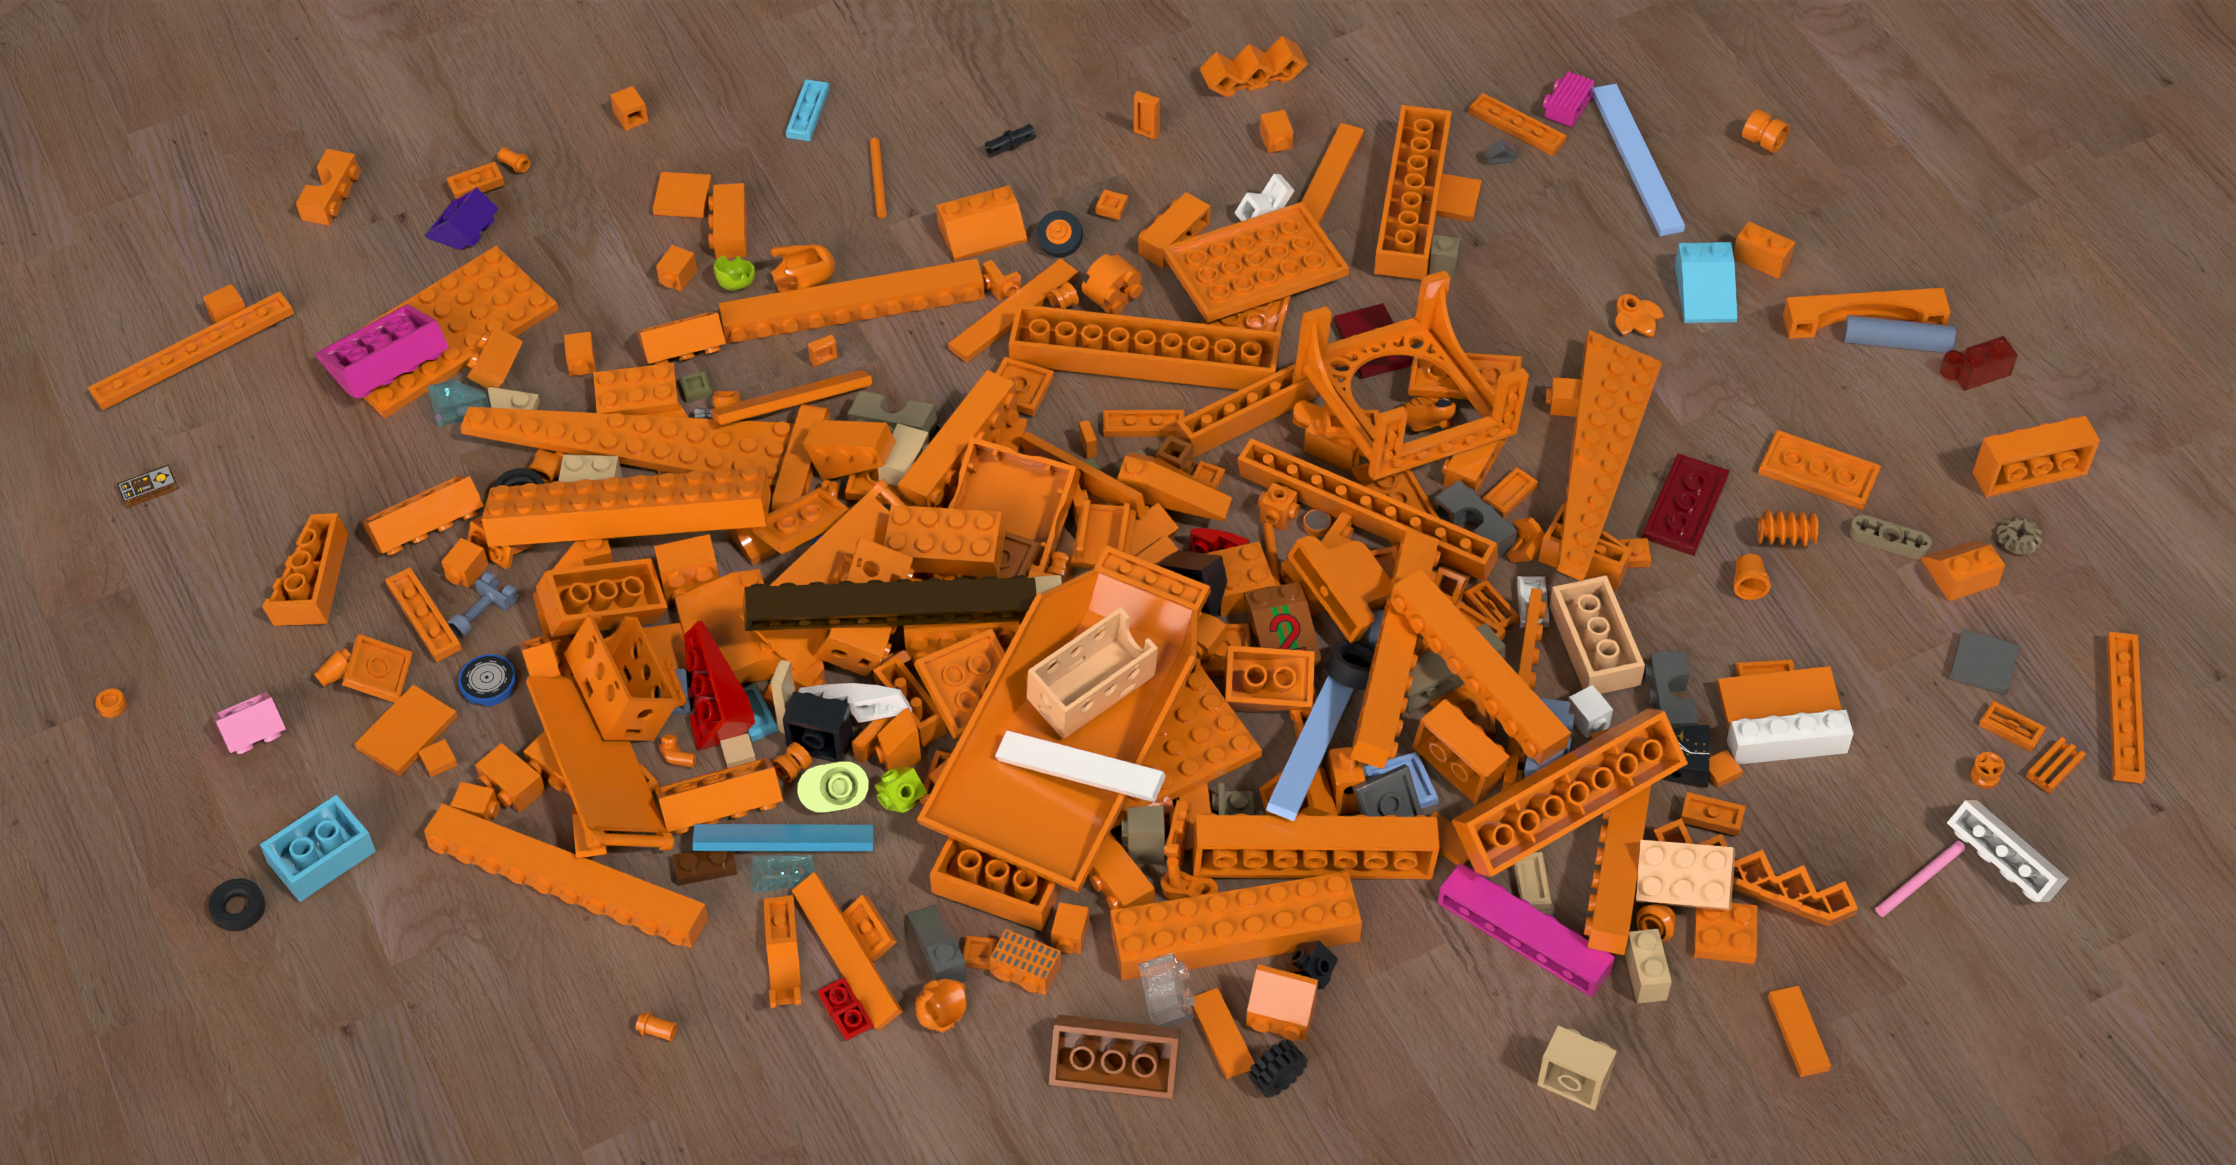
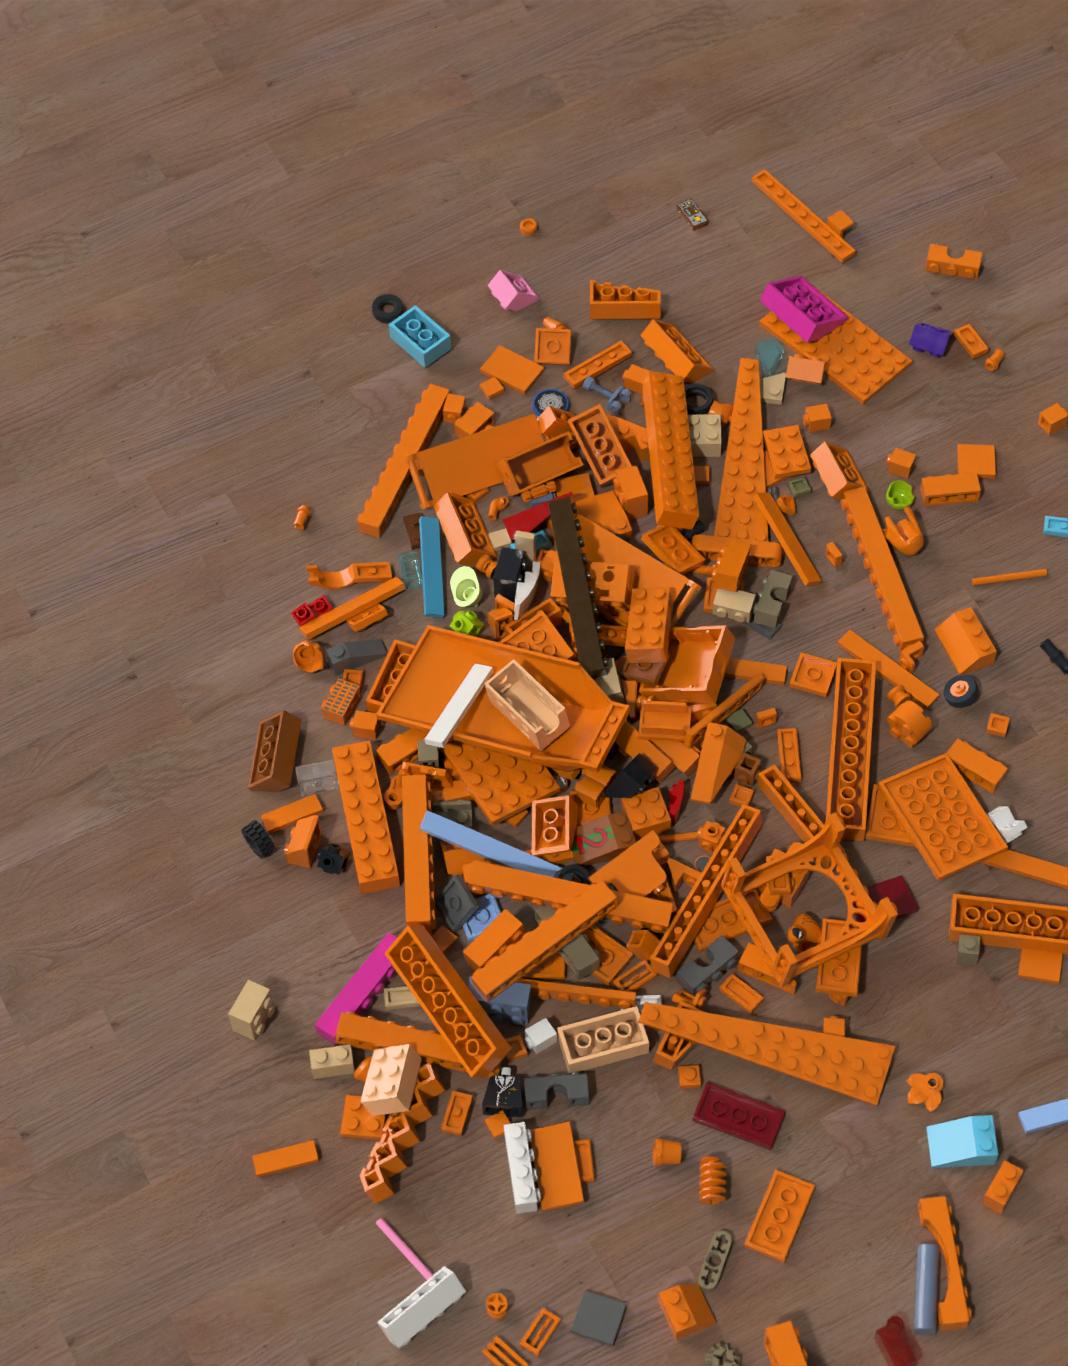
camera: 90 degrees right, 5 degrees up
(981, 415) = (753, 638): orange brick -> none

